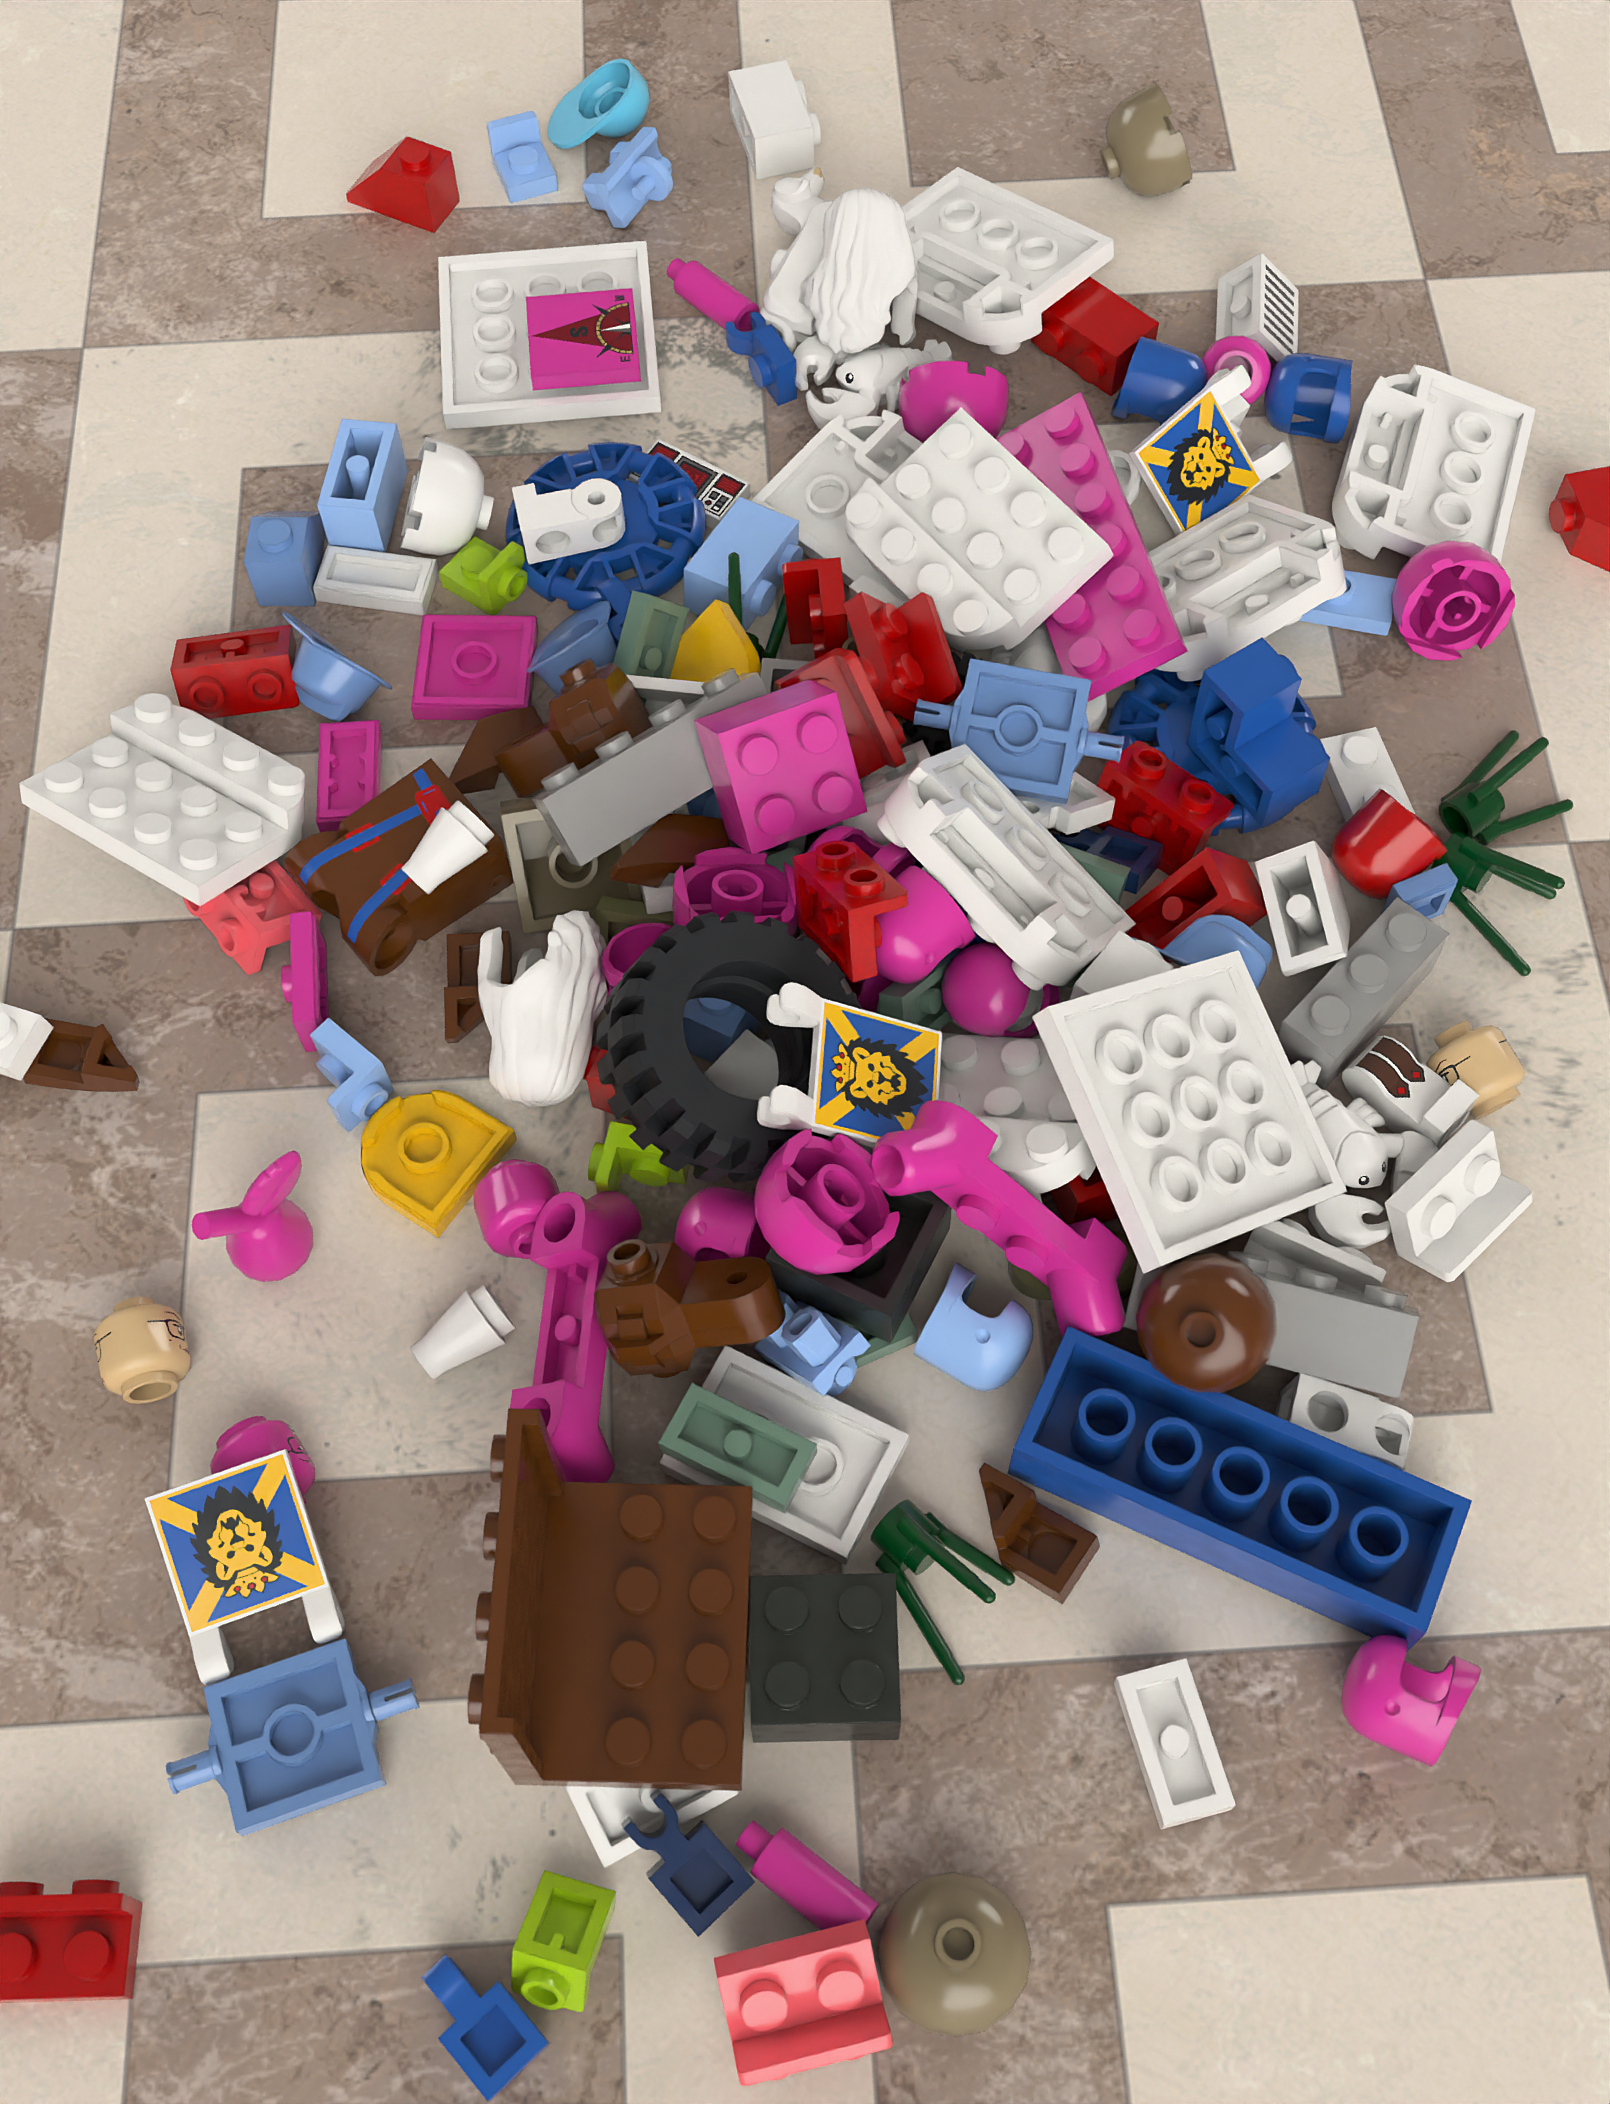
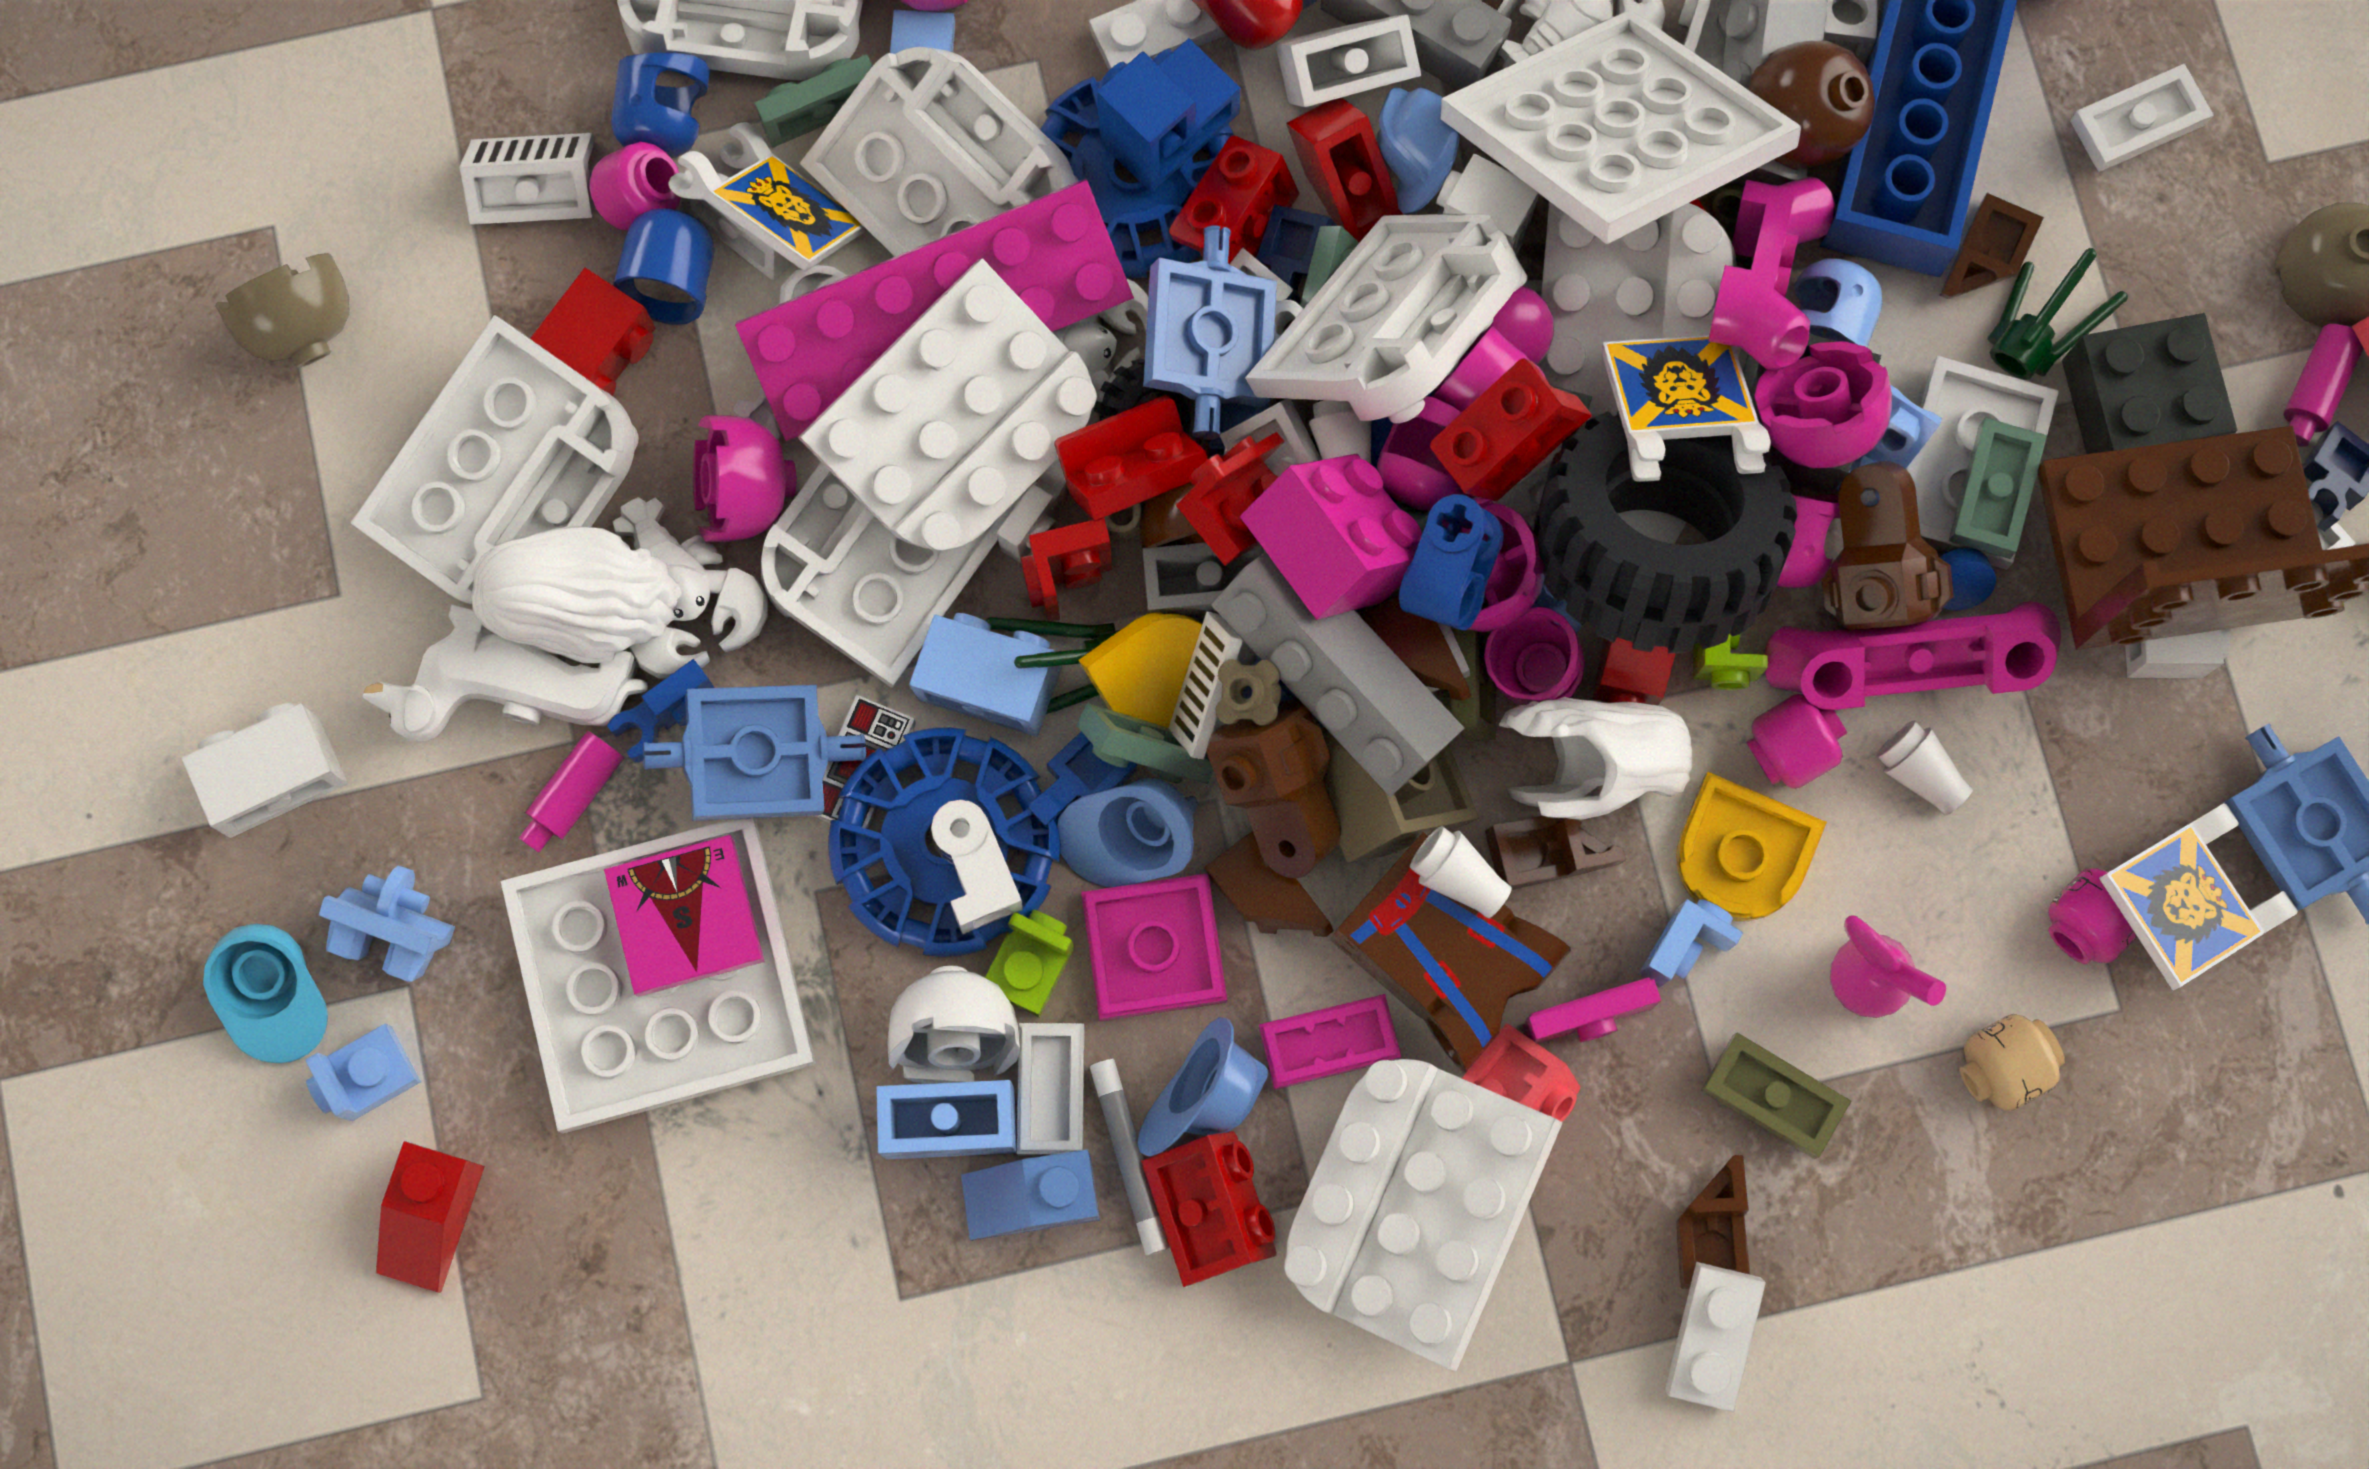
camera: 100 degrees left, 15 degrees up
(182, 1128) = (1776, 1095): none -> olive plate
(322, 622) = (1128, 1155): none -> light grey bar
(650, 691) = (1265, 695): none -> dark tan plate
(652, 1407) = (1971, 578): none -> blue tile
(706, 391) = (754, 752): none -> medium blue plate
(729, 849) = (1452, 567): none -> blue piece
(1304, 491) = (806, 106): none -> sand green plate

